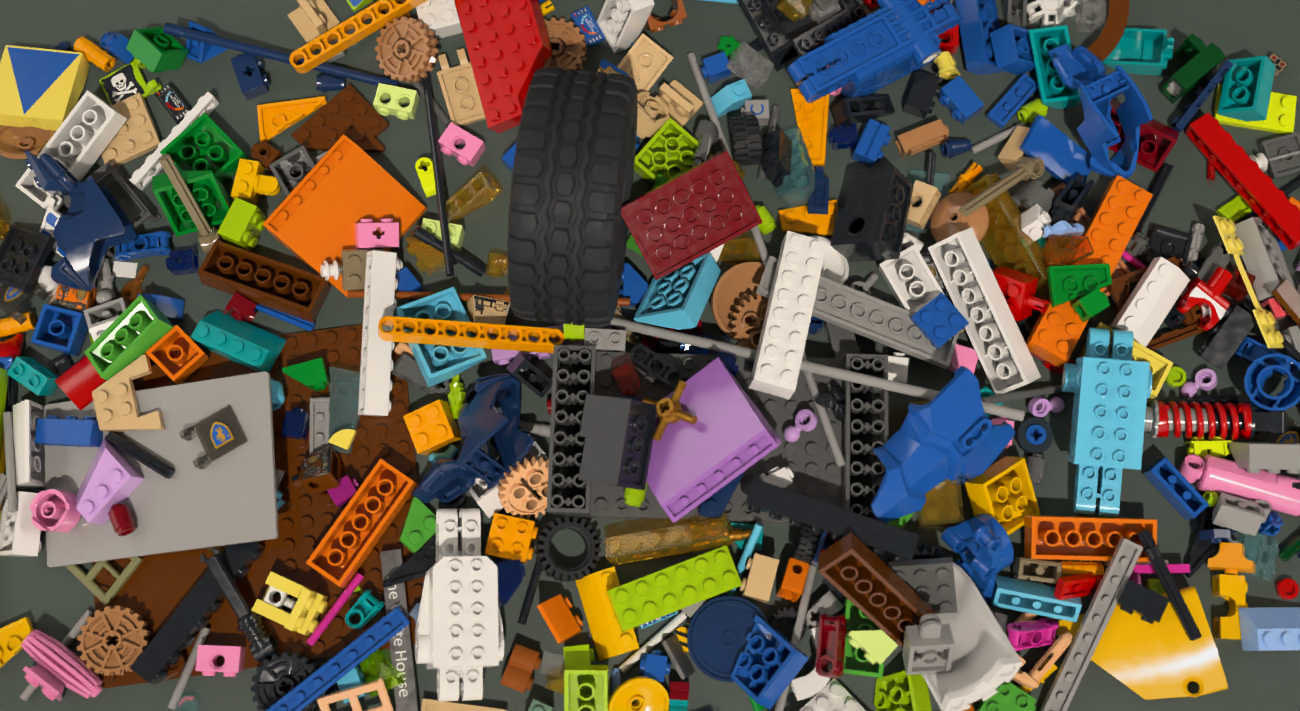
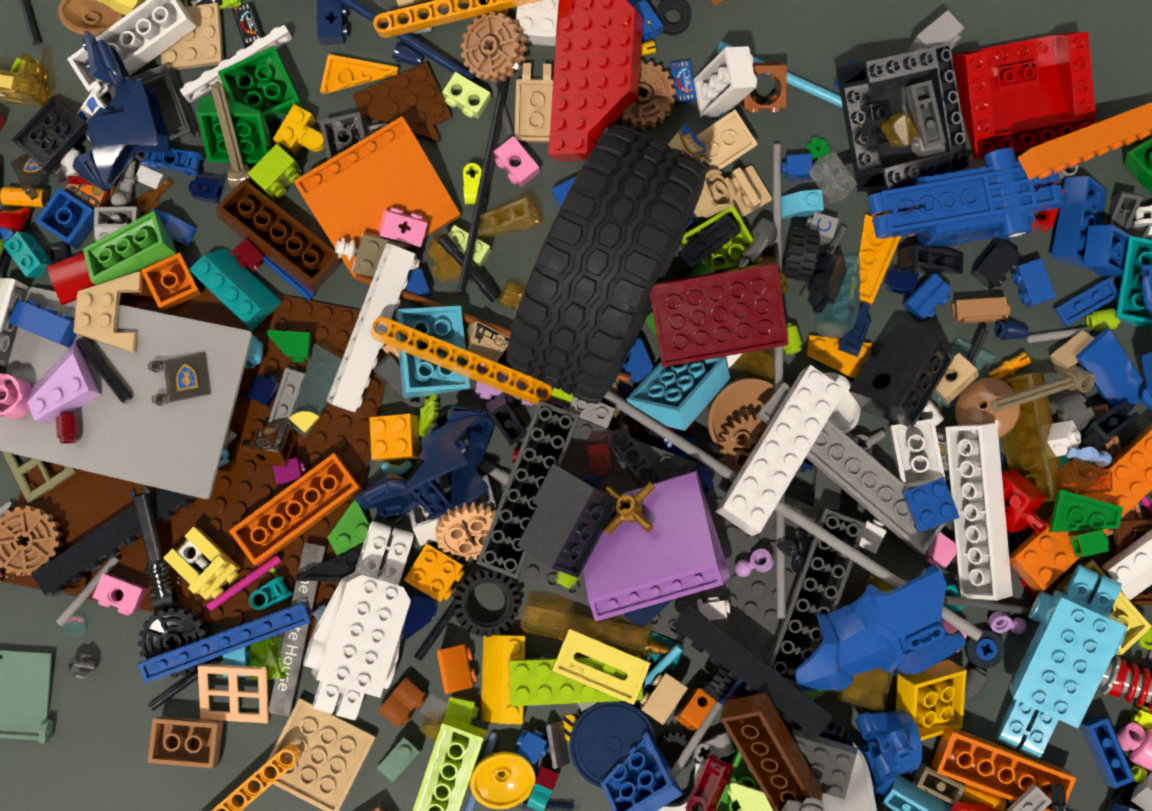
camera: 20 degrees right, 5 degrees up
(60, 291) = (76, 180): none -> red piece
(272, 155) = (325, 112): reddish brown brick -> none
(652, 642) = (537, 721): white bar -> none
(660, 156) = (709, 242): none -> black plate
(723, 556) = (623, 689): none -> light yellow piece
(946, 66) = (1032, 245): light yellow piece -> none

